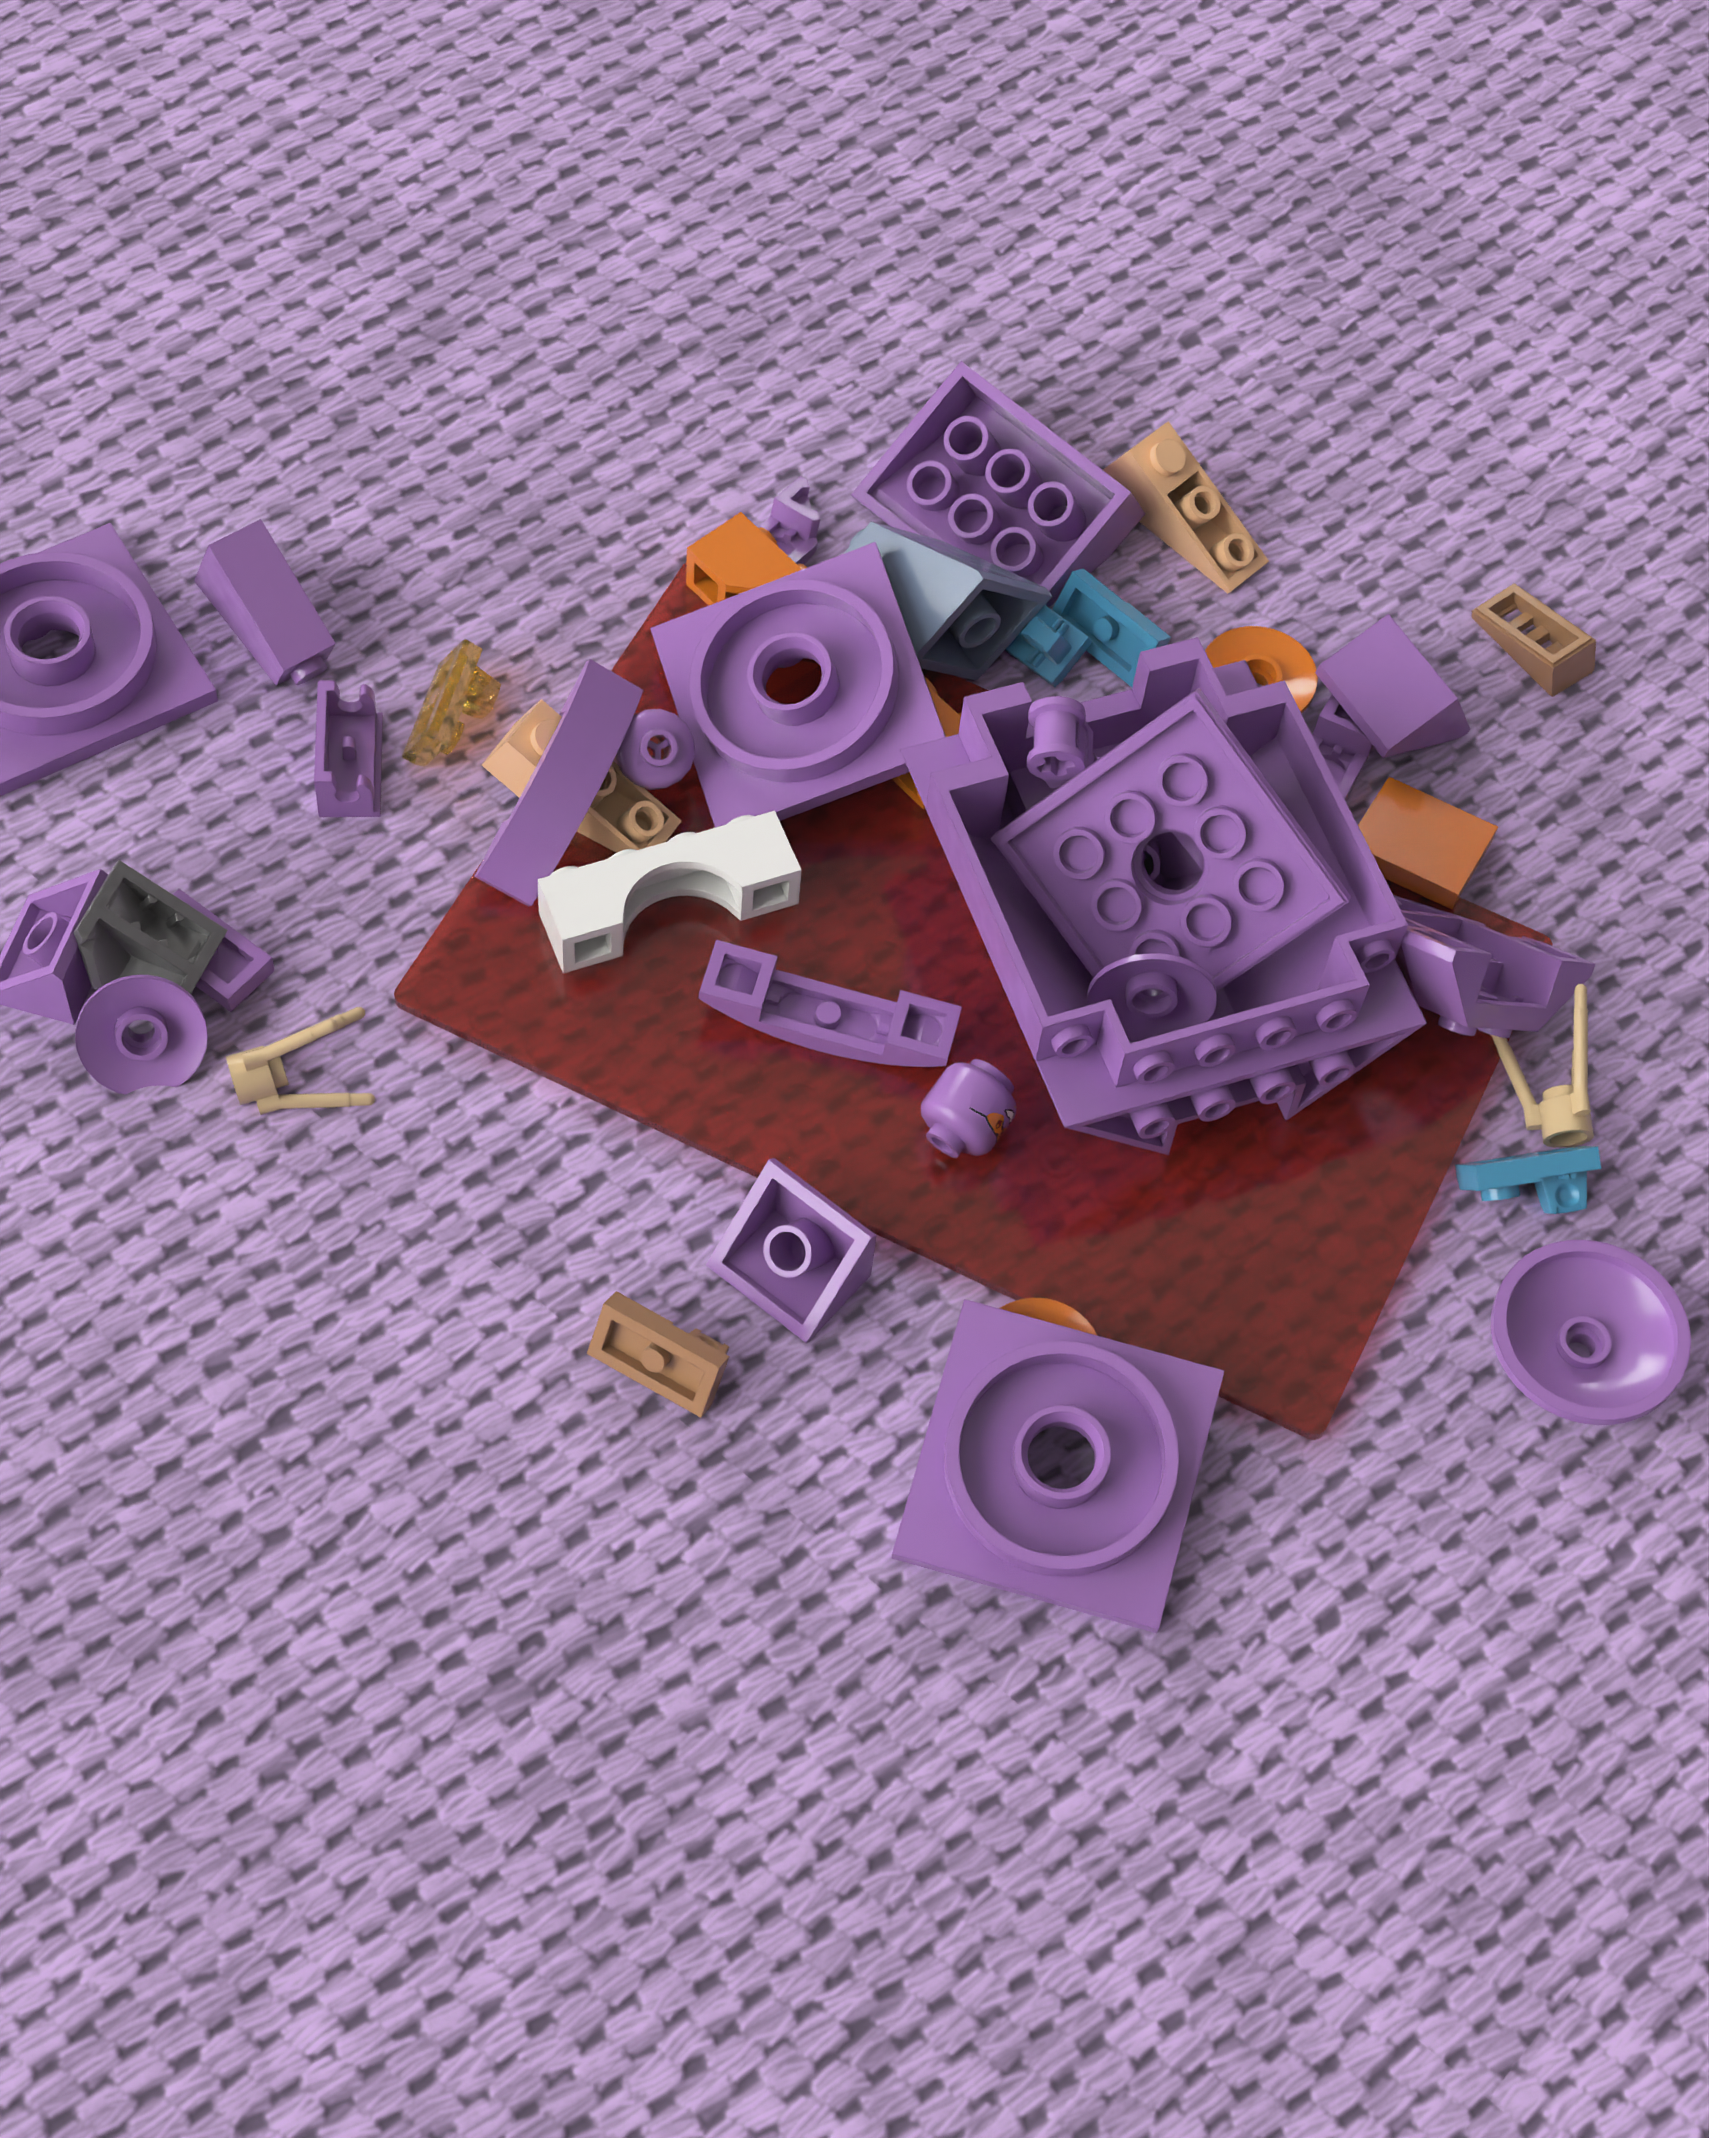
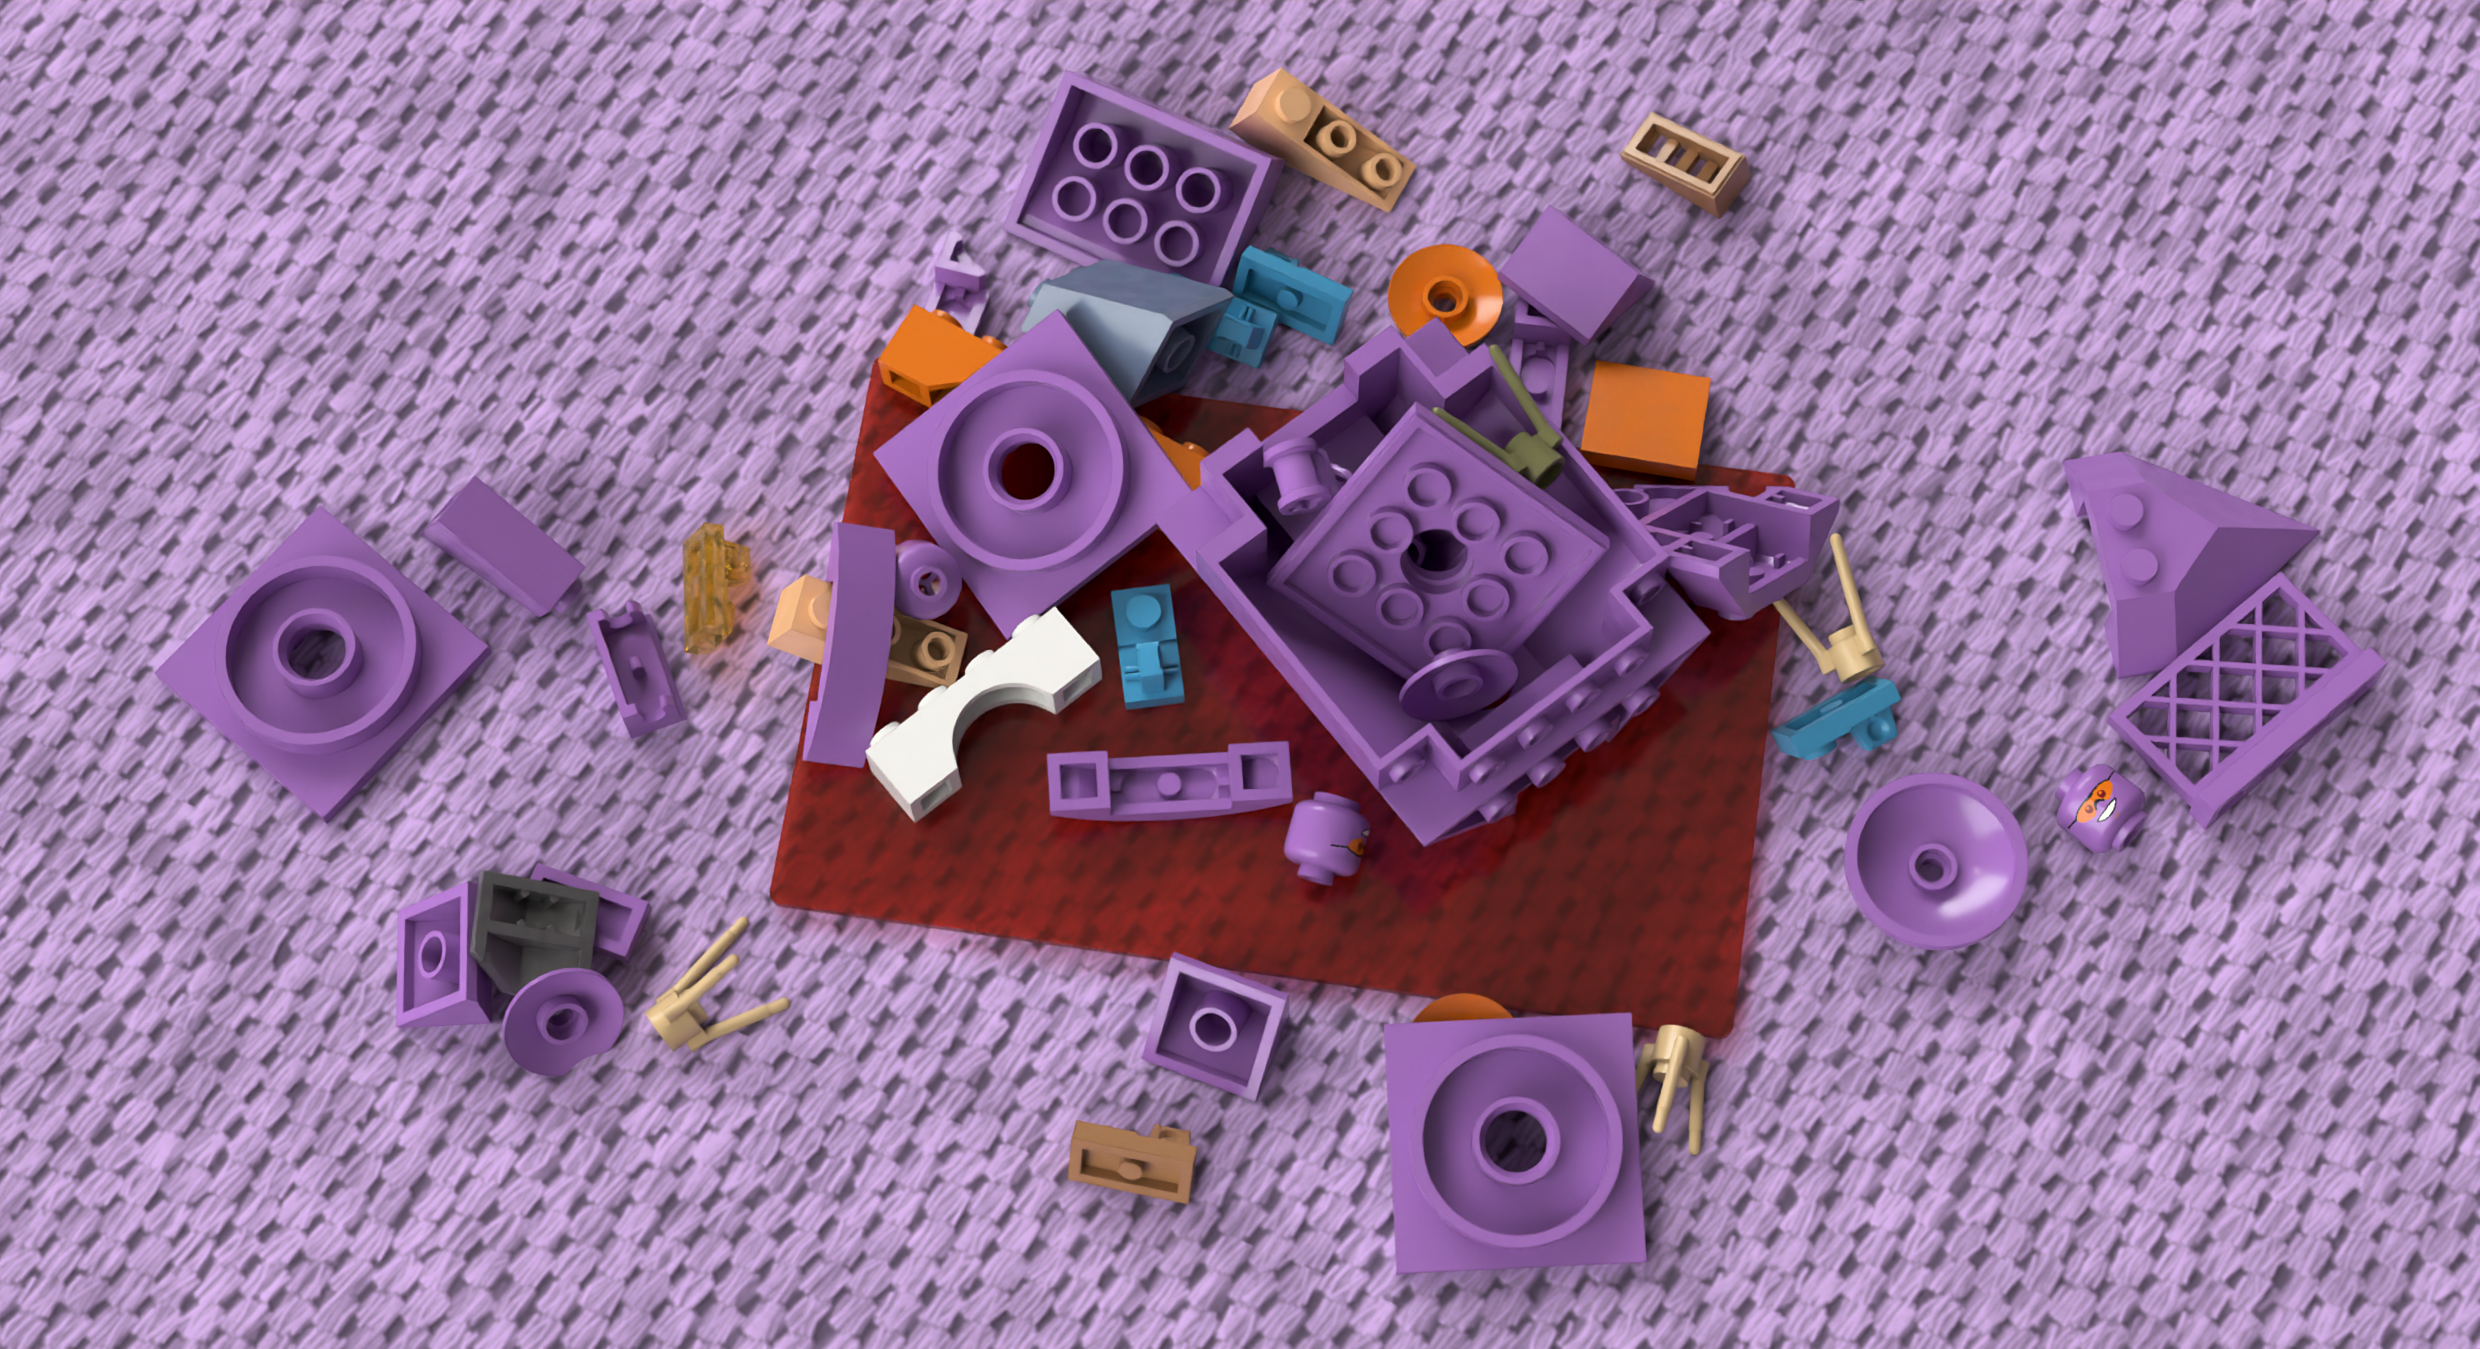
camera: 10 degrees left, 10 degrees up
(853, 886) = (1147, 646): none -> dark azure hinge
(1252, 1444) = (1675, 1061): none -> tan plant
(1300, 790) = (1528, 455): none -> olive plant

